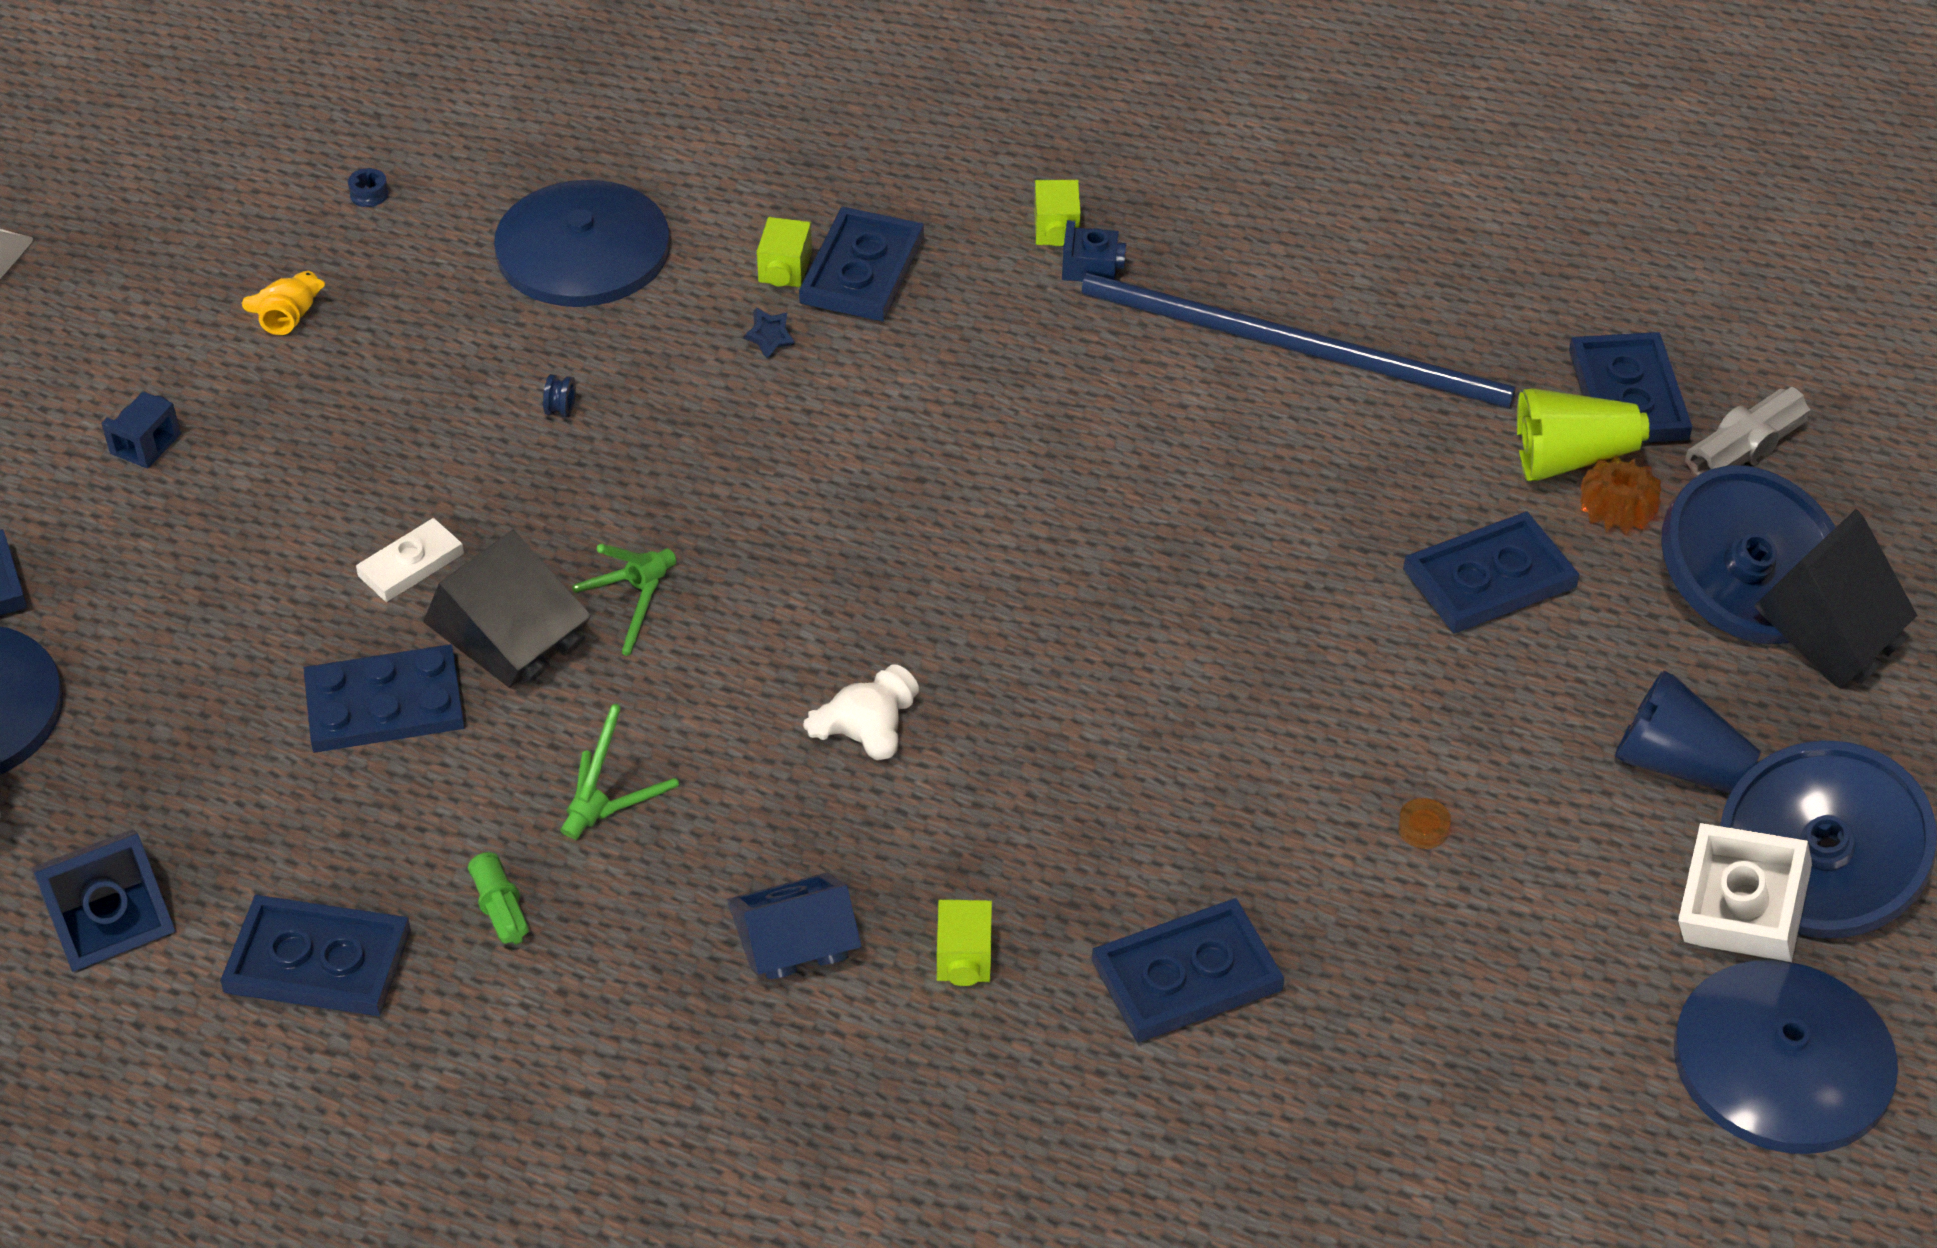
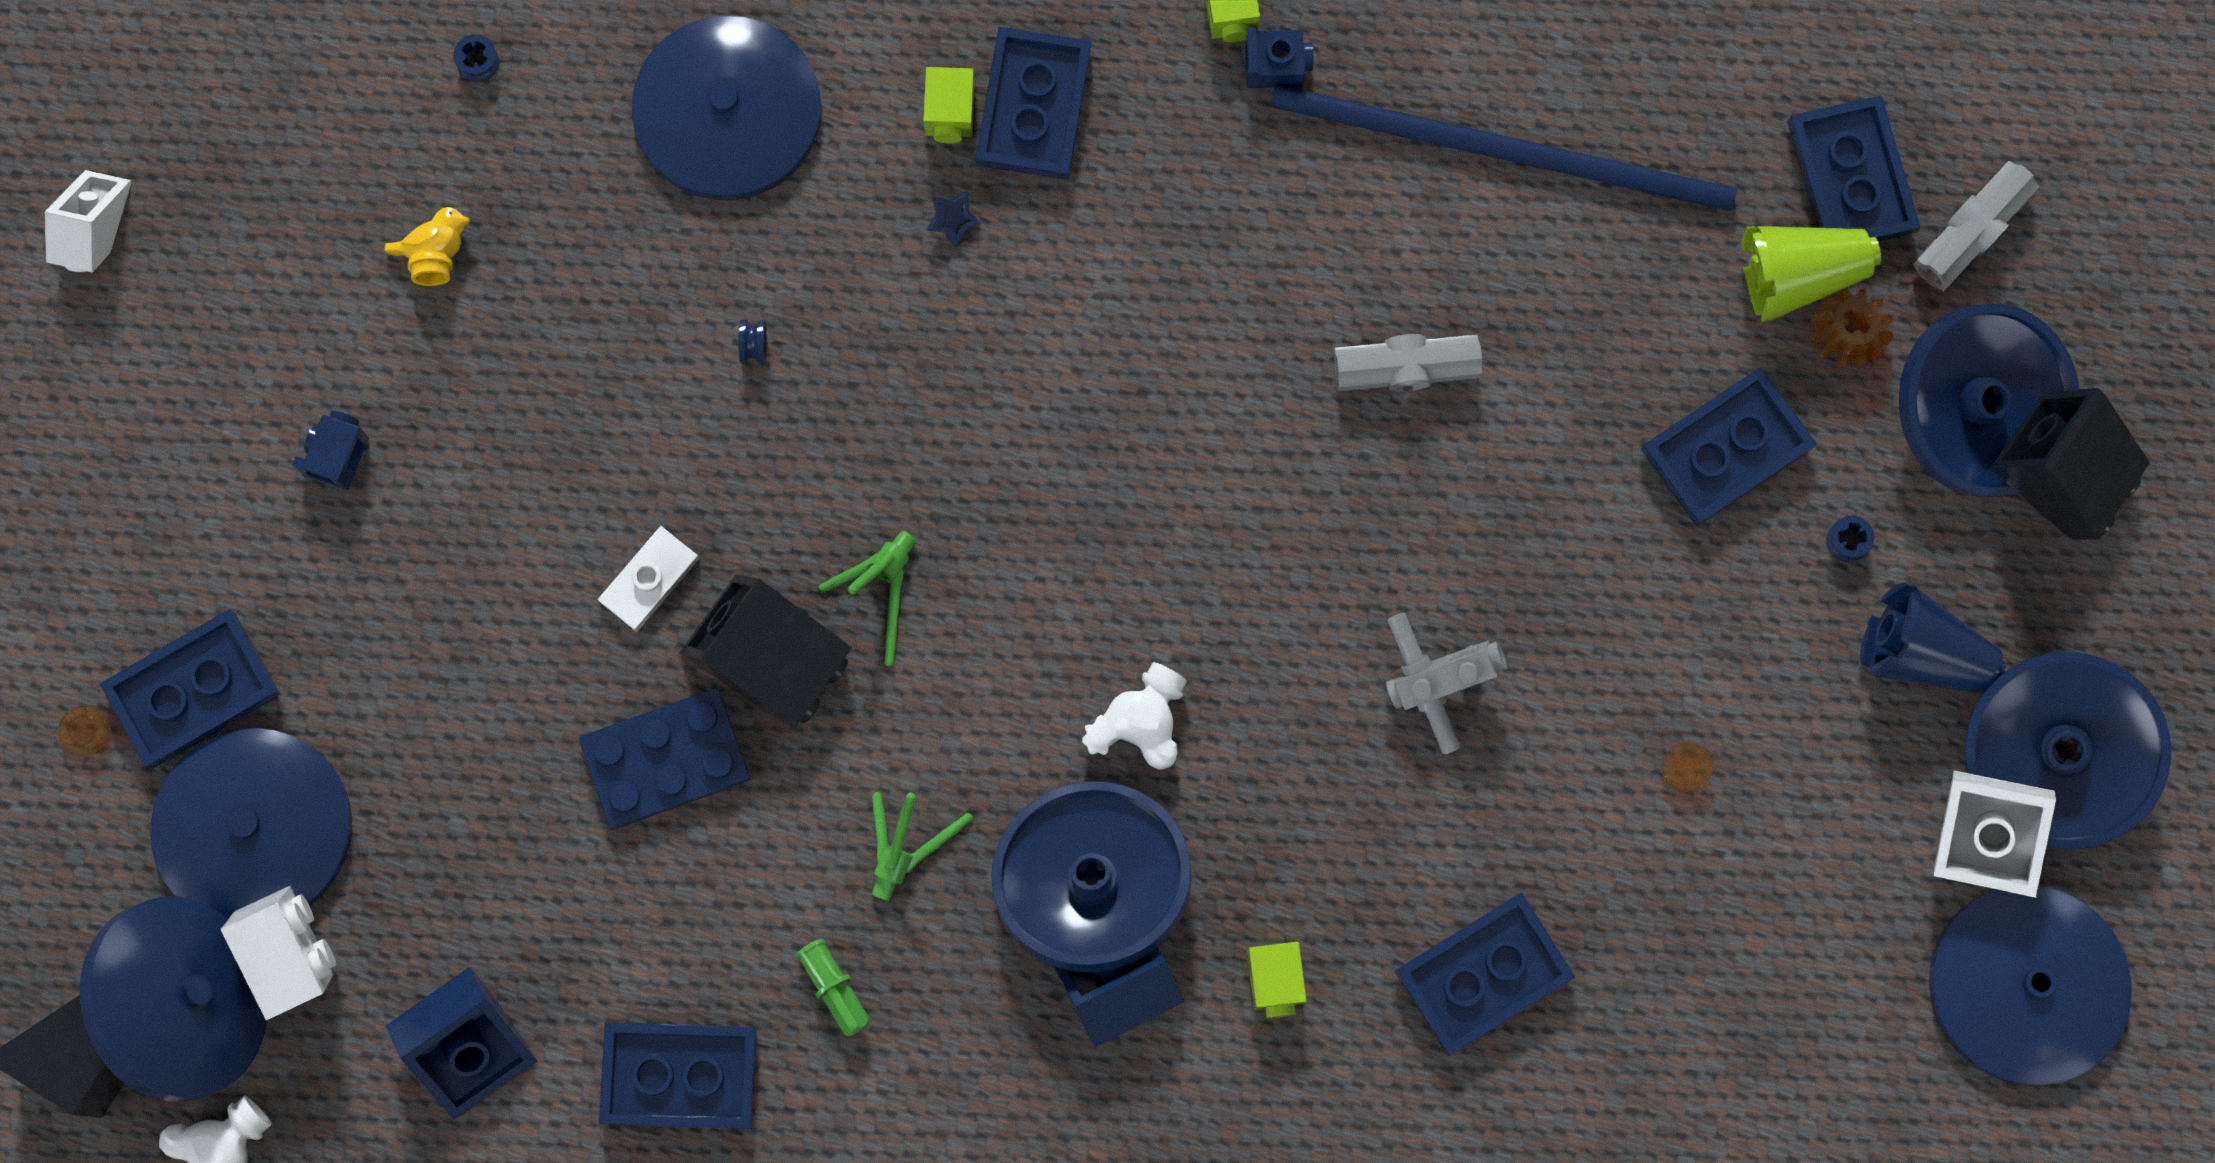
camera: 10 degrees left, 30 degrees up
(787, 826) = (1091, 876): none -> dark blue dish
(1164, 710) = (1428, 682): none -> light grey piece
(1181, 475) = (1407, 362): none -> light grey piece
(1609, 645) = (1863, 528): none -> dark blue bush

